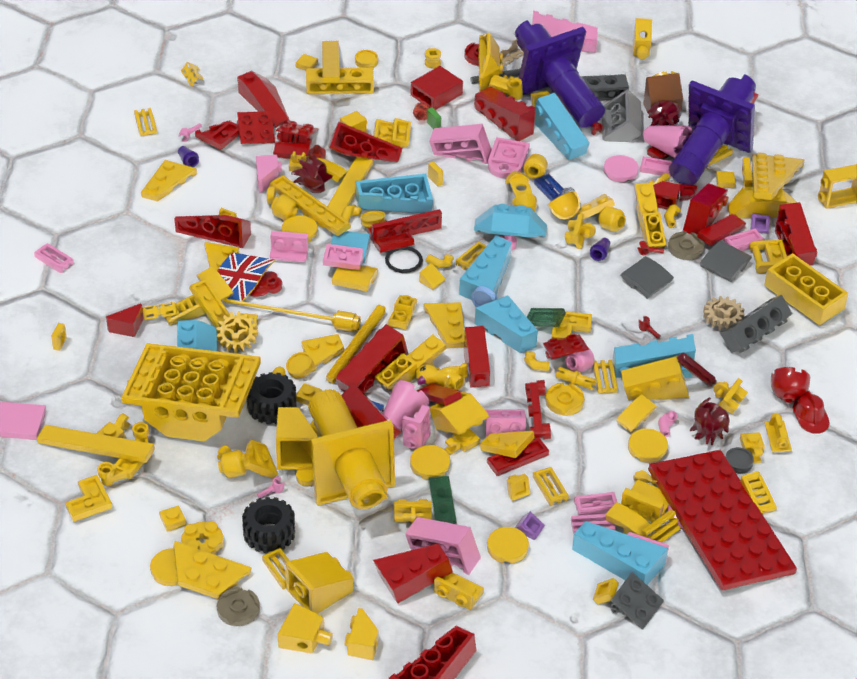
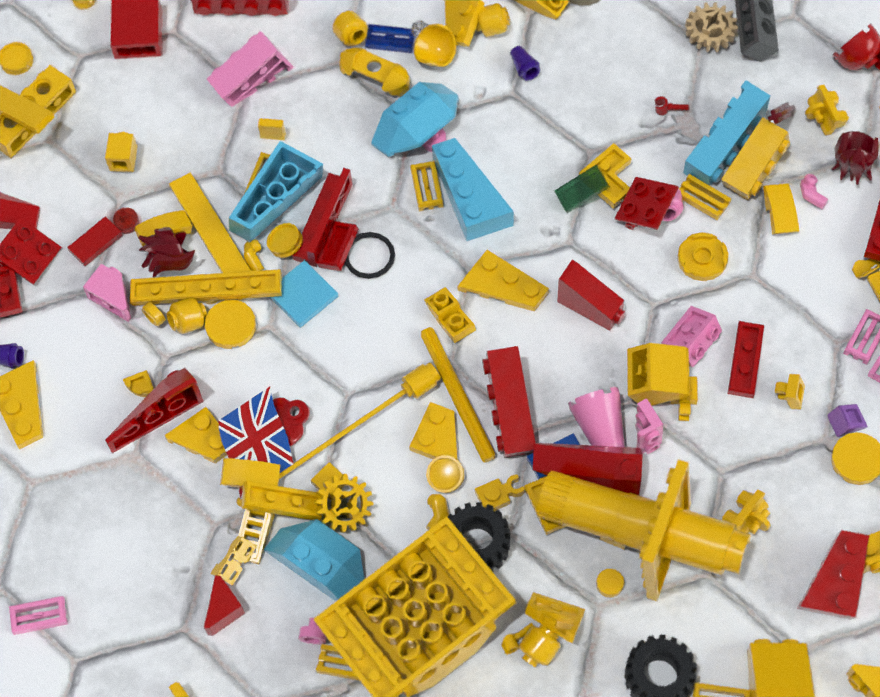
camera: 45 degrees left, 20 degrees up
(276, 487) = (599, 627): bright pink hand -> none
(289, 246) = (257, 357): bright pink bracket -> none
(293, 440) = (568, 562): yellow slope -> none
(294, 164) = (122, 249): yellow tile -> none
(301, 132) = (70, 212): red hinge -> none
(343, 256) = (328, 314): bright pink bracket -> none
(355, 279) = (355, 321): yellow slope -> none
(361, 144) = (159, 169): red wedge -> none
(395, 133) = (163, 123): yellow slope -> none
(405, 366) = (539, 363): yellow slope -> none
(420, 111) = (160, 69): clear red tile -> none
(430, 461) = (688, 443): yellow tile -> none
(431, 277) = (424, 249): yellow slope -> none
(433, 118) = (184, 67): bright green tile -> none
(440, 263) = (409, 223): yellow arm -> none
(441, 394) = (614, 371): red tile -> none
(442, 499) = (751, 476): clear green tile -> none
(448, 377) = (589, 346): yellow animal -> none
(454, 539) = (815, 518): bright pink wedge -> none
(482, 296) = (507, 224): light blue piece -> none
(507, 155) = (305, 40): bright pink tile -> none
(507, 443) = (726, 357): yellow wing -> none
(508, 322) = (561, 228): medium azure wedge -> none
(533, 391) = (707, 297): red plate -> none
(534, 364) = (628, 247): yellow arm -> none
(554, 497) = (801, 360): yellow tile -> none
(575, 378) = (687, 225): yellow pin -> none
(579, 231) = (487, 71): yellow hips -> none
(644, 249) = (556, 24): red hand -> none
(647, 276) = (599, 52): dark grey slope -> none
(648, 445) = (827, 231): yellow tile -> none

